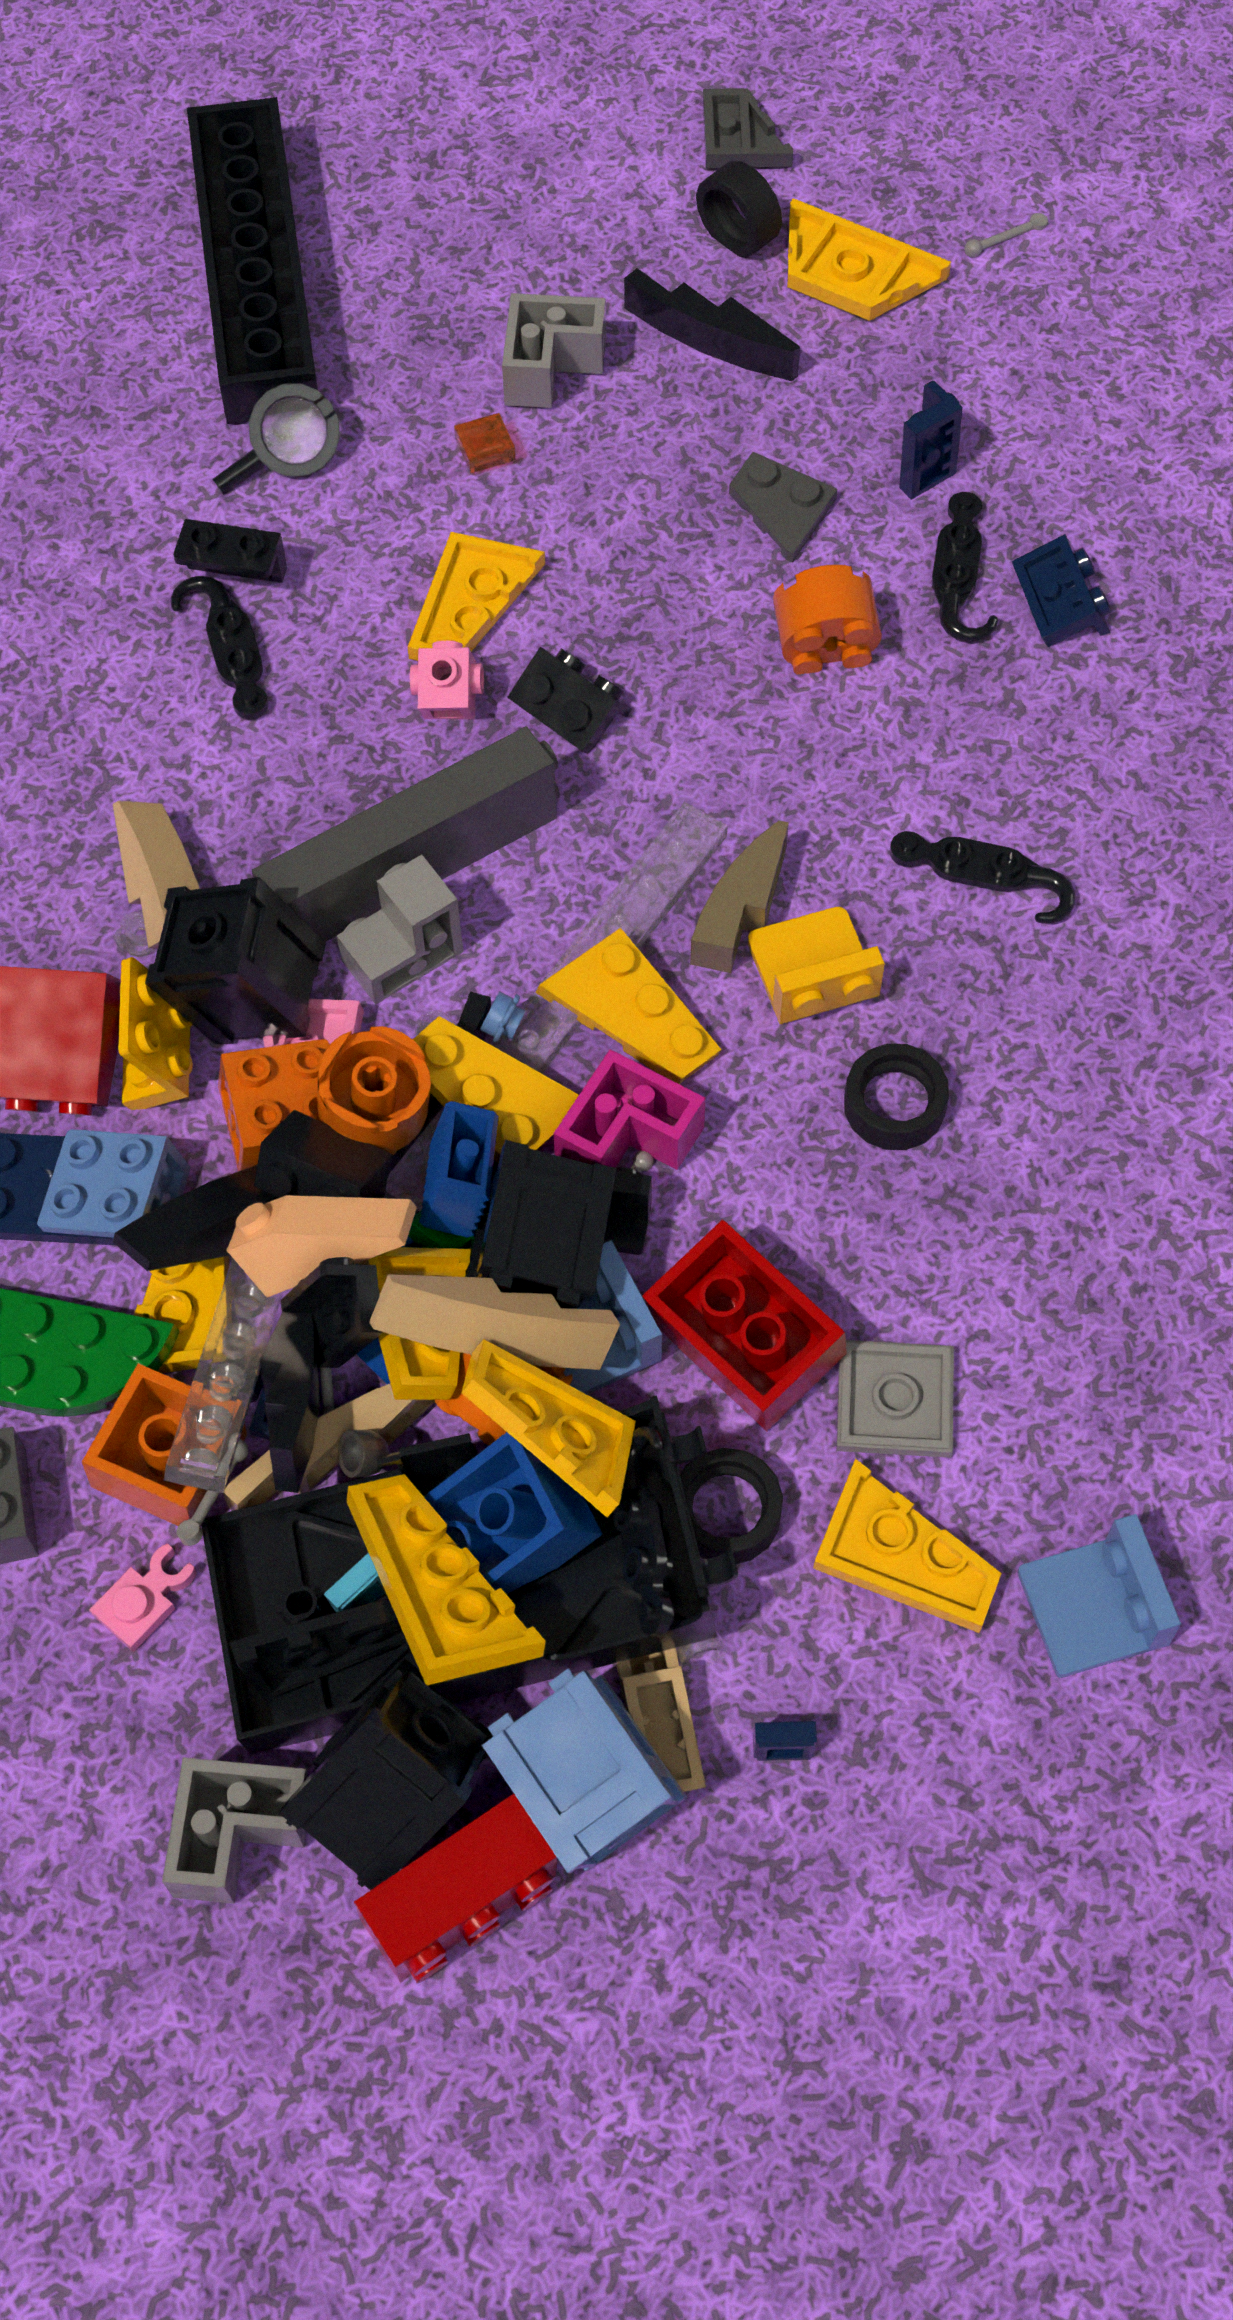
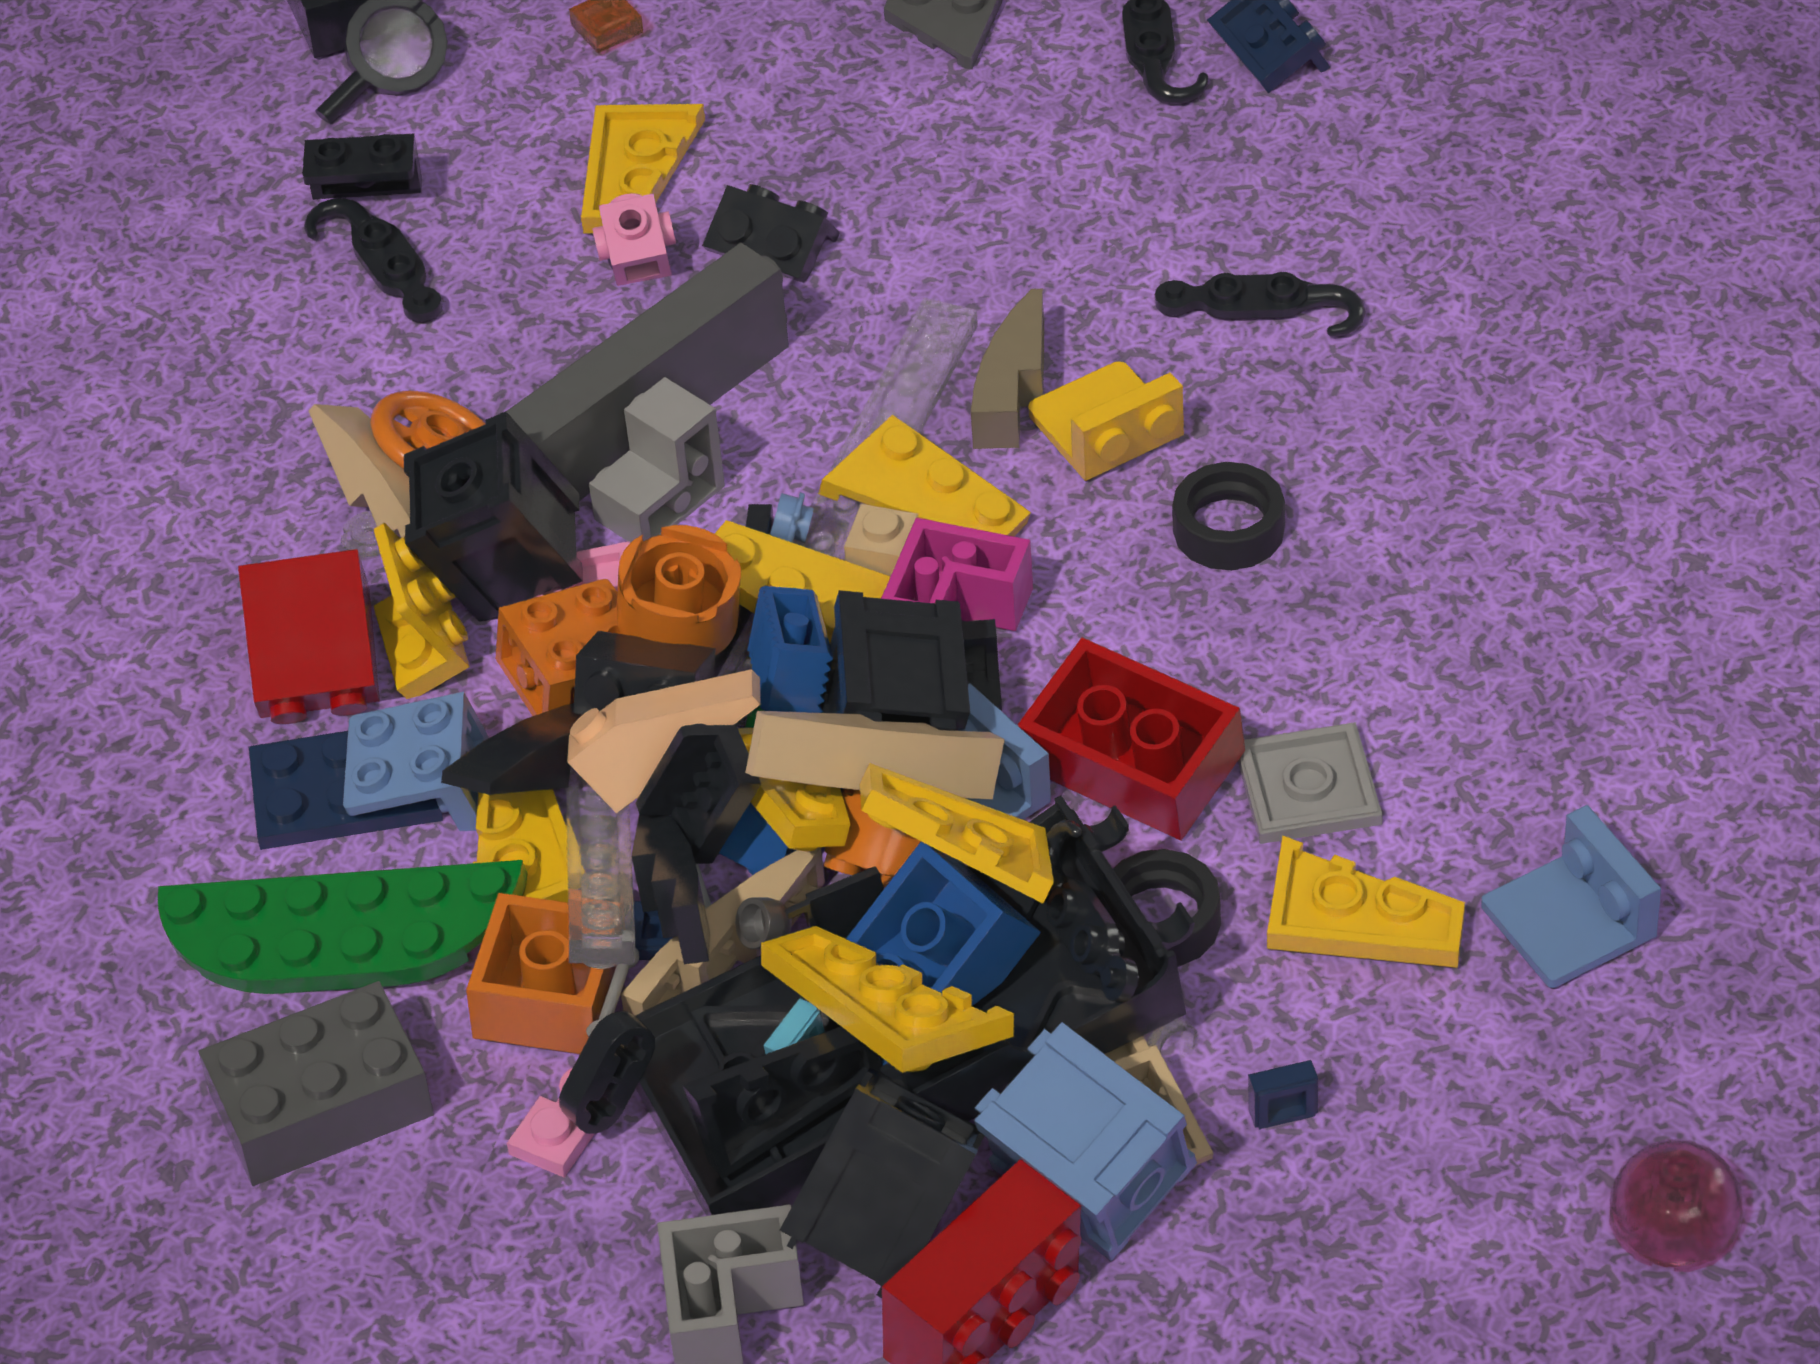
camera: 10 degrees left, 15 degrees down
(183, 1578) = (607, 1072): none -> black beam
(218, 848) = (432, 419): none -> orange plate
(574, 1055) = (878, 537): none -> tan brick
(827, 619) = (1027, 102): orange brick -> none
(1111, 1954) = (1676, 1206): none -> clear pink cylinder

